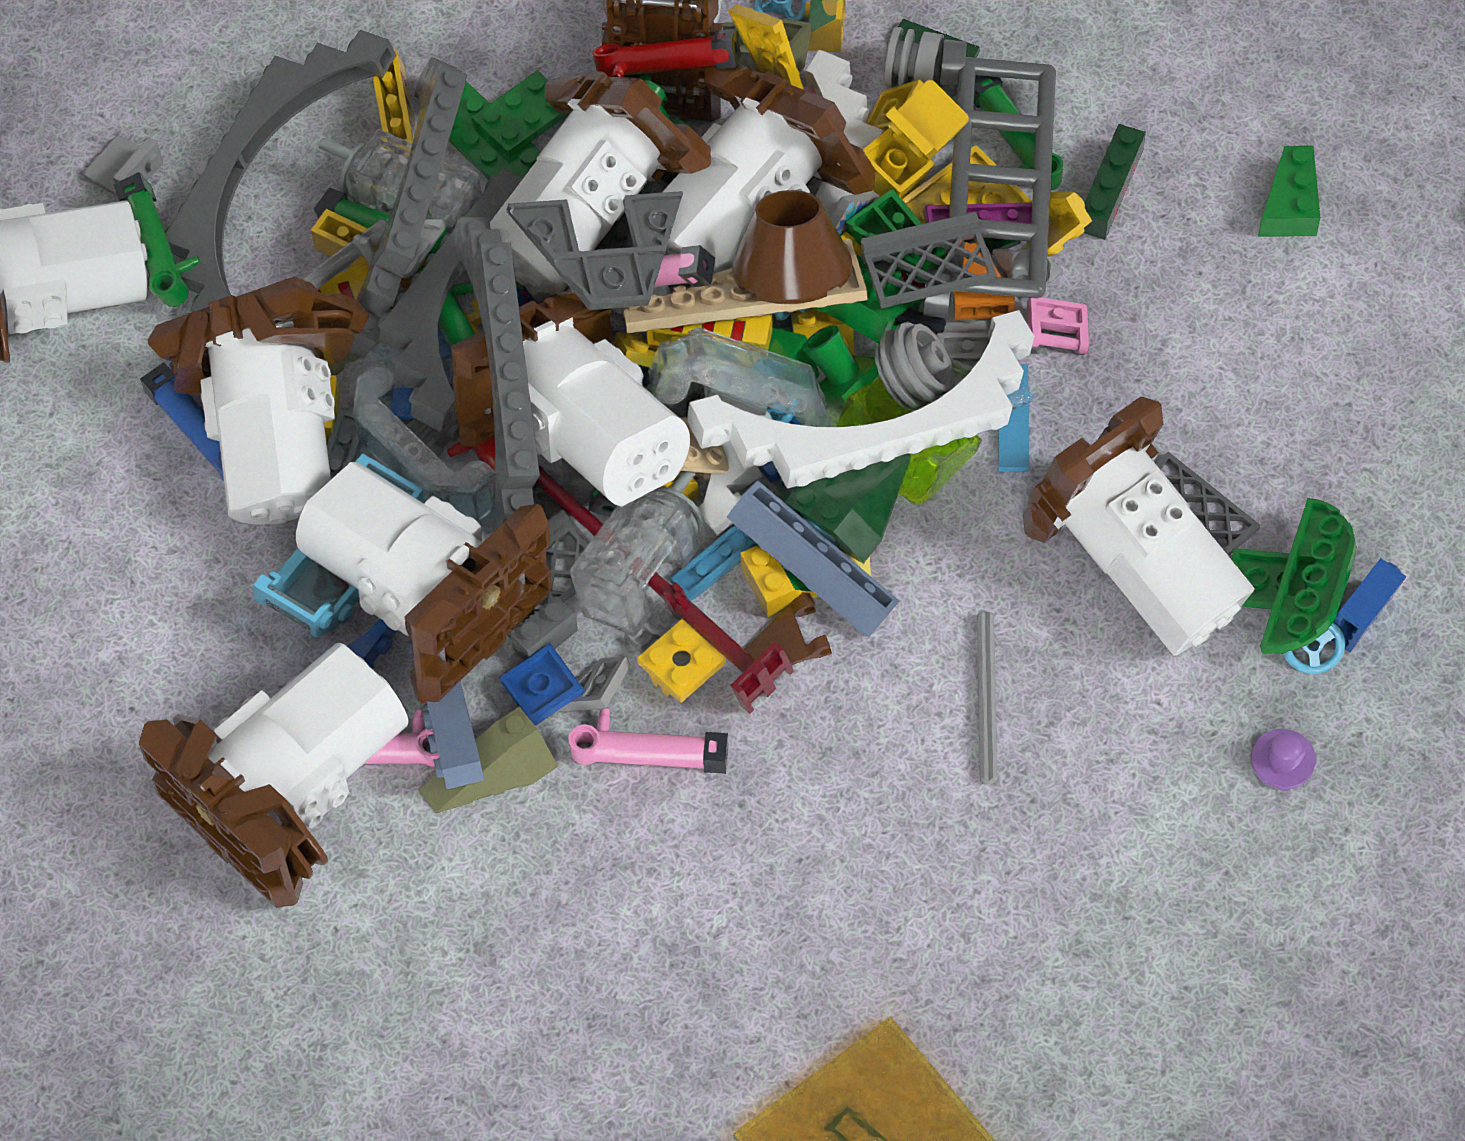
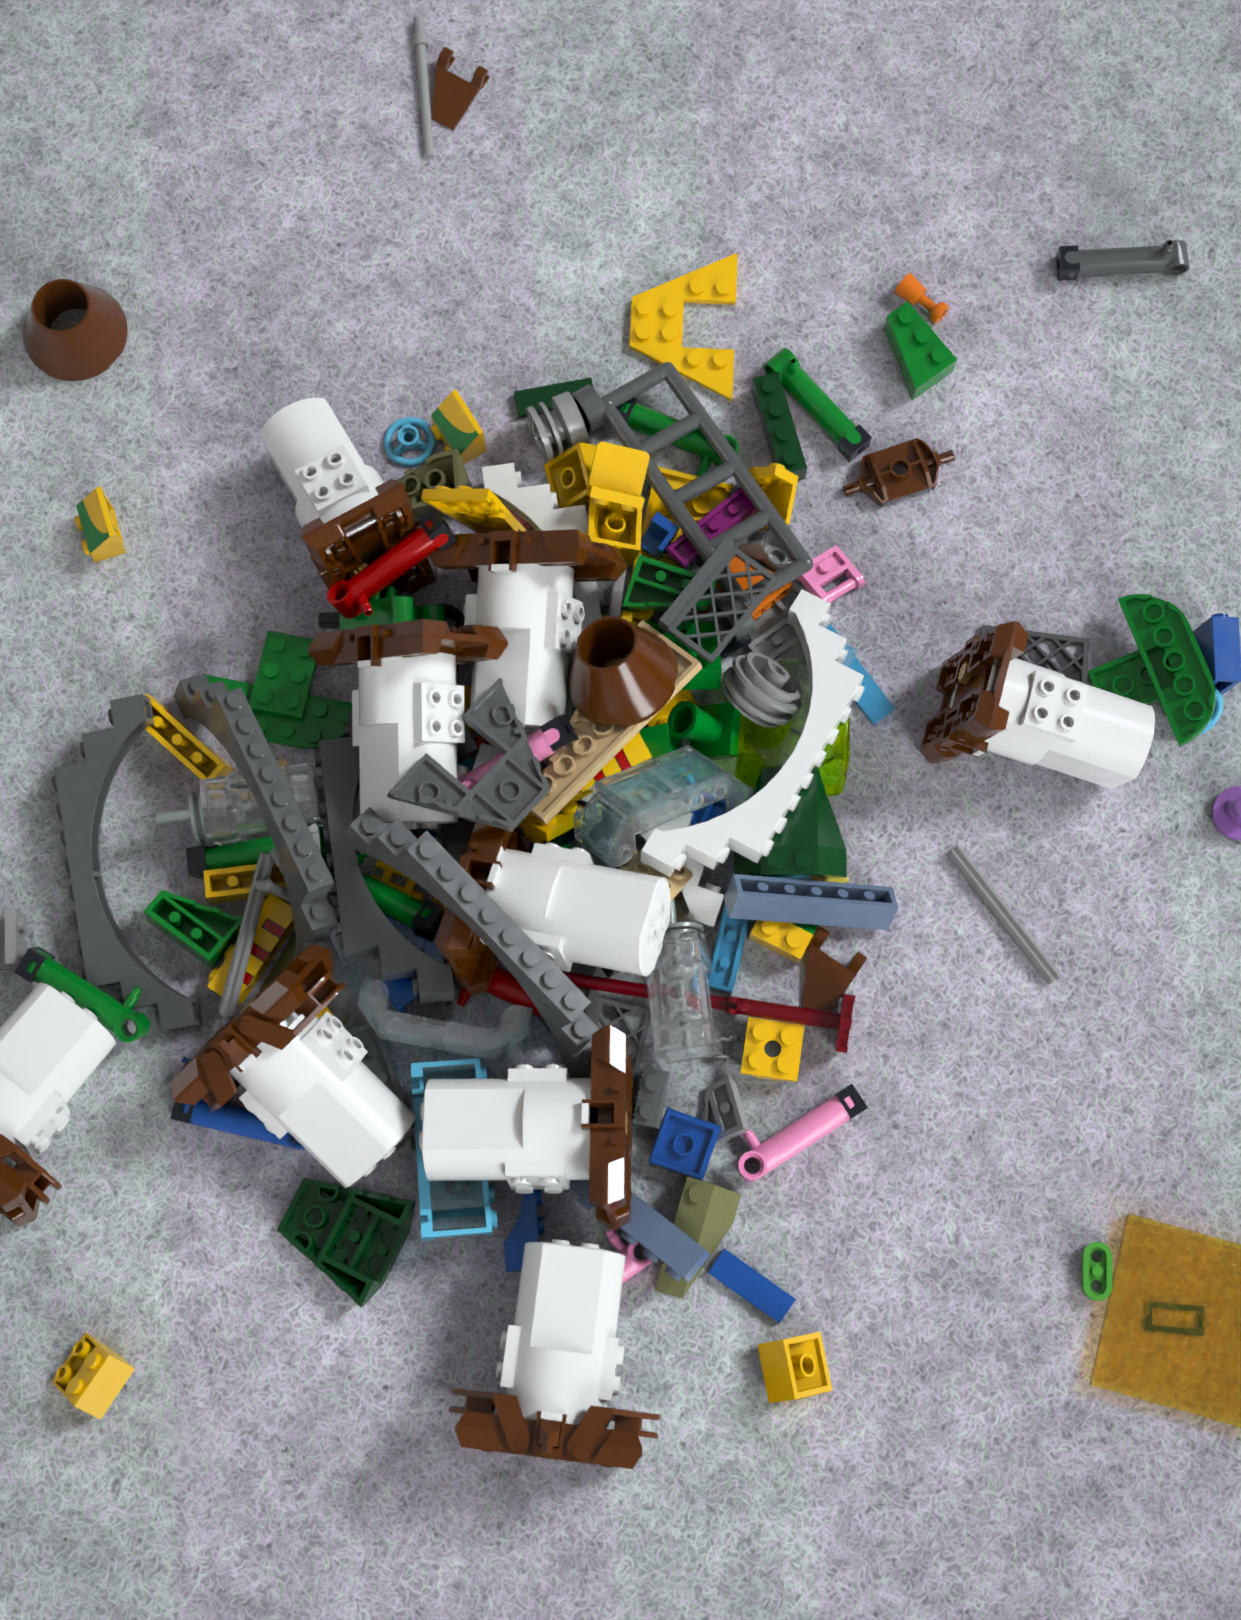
camera: 40 degrees left, 15 degrees up
(204, 567) = (348, 1233): none -> dark green wedge
(282, 244) = (193, 926): none -> green wedge
(483, 930) = (794, 1367): none -> yellow slope
(503, 843) = (751, 1286): none -> blue tile
(819, 1046) = (1098, 1271): none -> bright green plate
(933, 194) = (658, 536): none -> blue panel
(1082, 36) = (658, 324): none -> yellow wing
(1171, 225) = (849, 438): none -> green piece
(1215, 294) = (884, 485): none -> reddish brown plate
(1330, 147) = (914, 292): none -> orange piece

